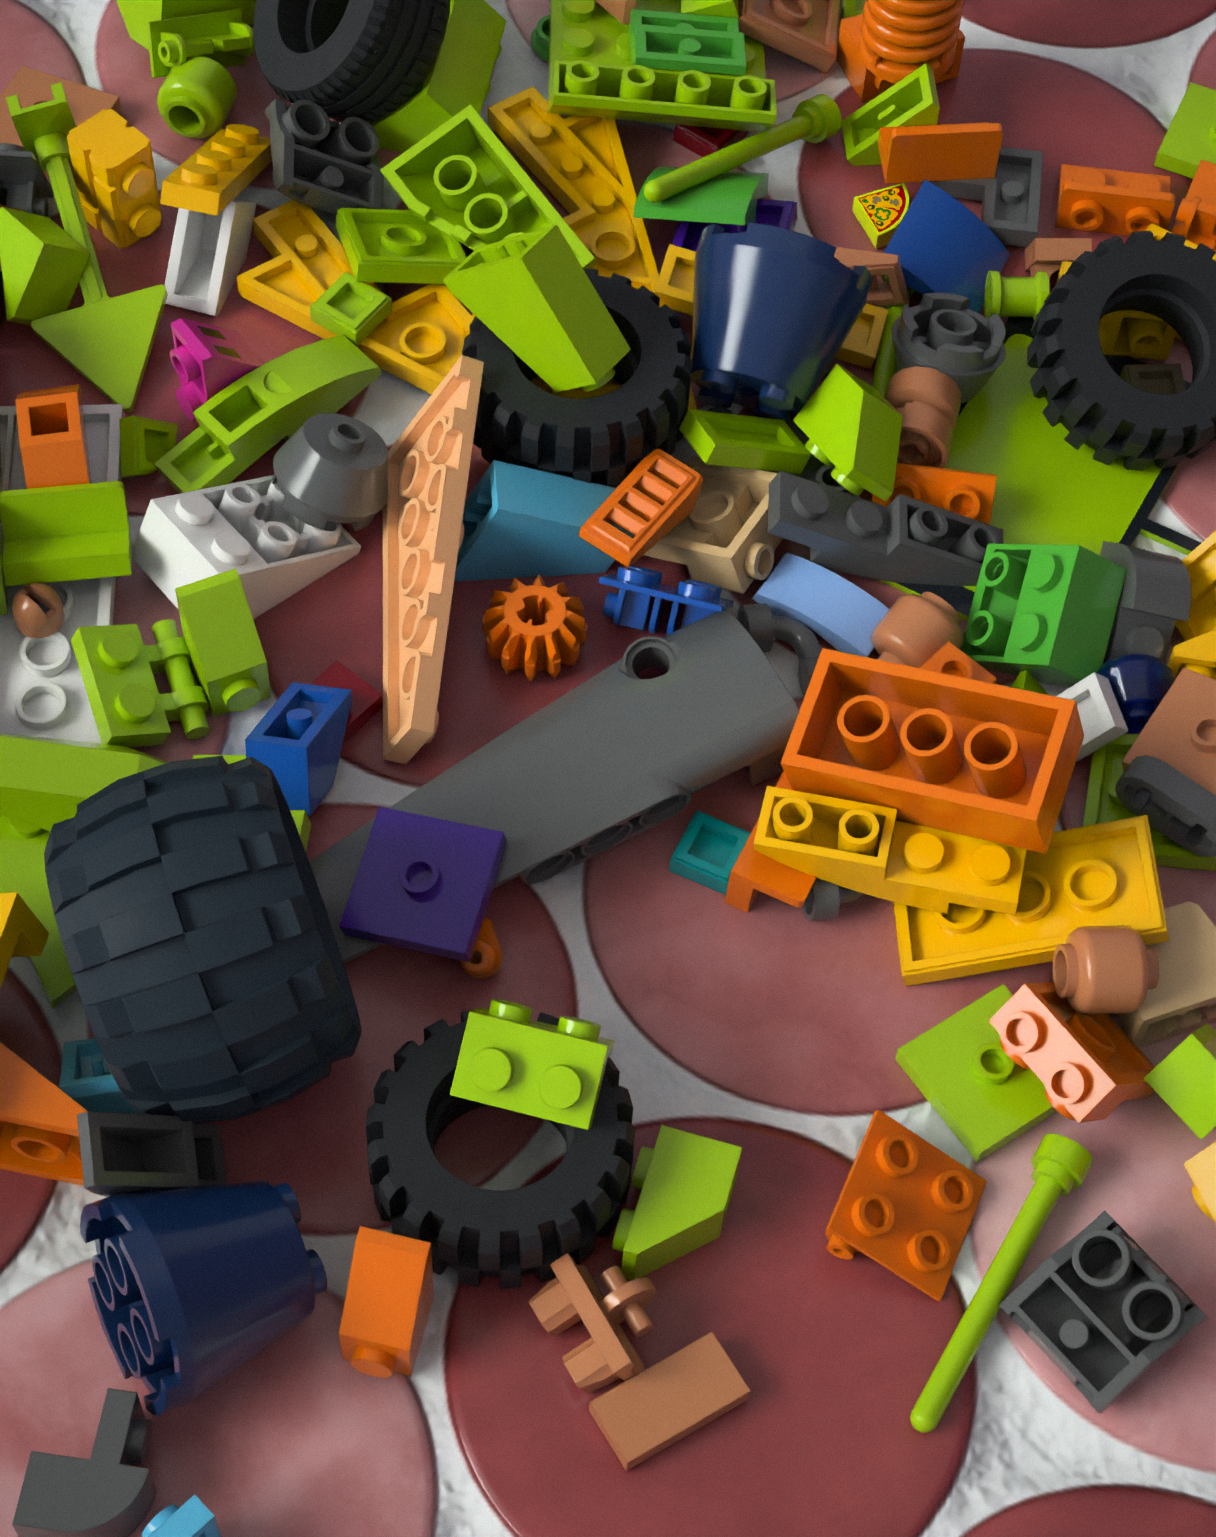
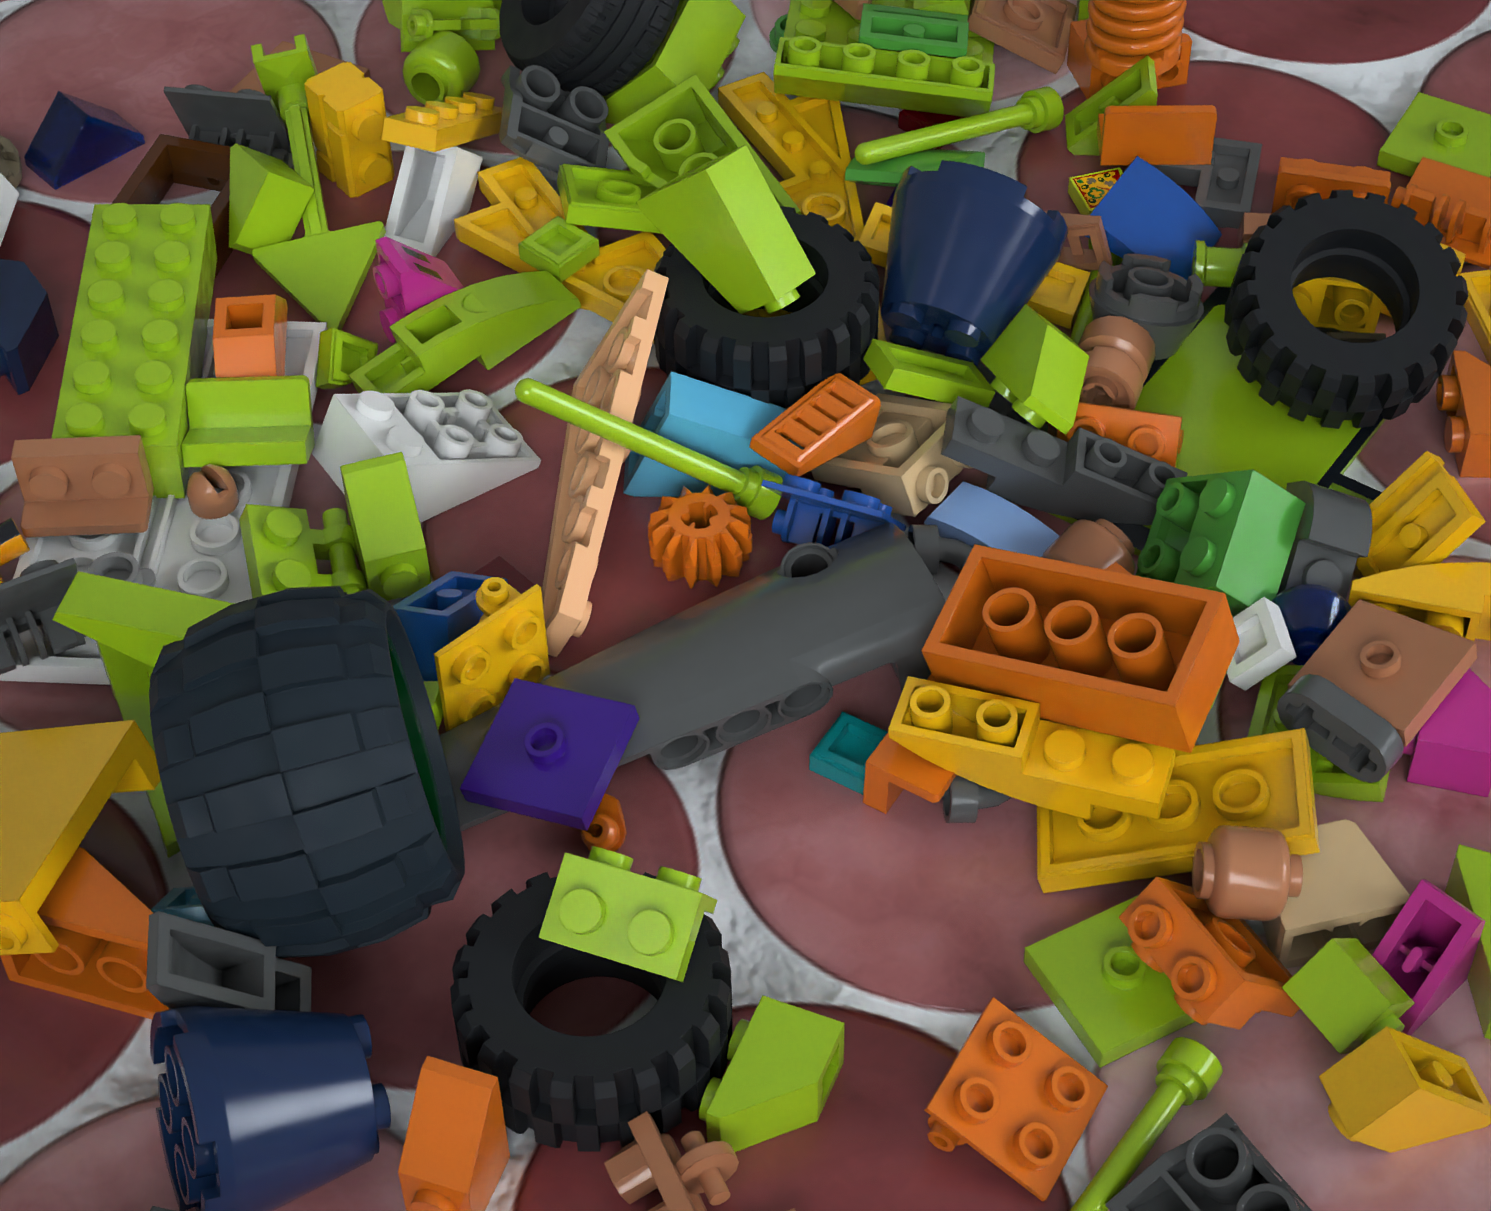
camera: 10 degrees right, 10 degrees down
(333, 472) = (495, 370): dark grey cone -> none
(361, 779) = (503, 646): none -> yellow hinge
(577, 570) = (743, 483): none -> lime piece

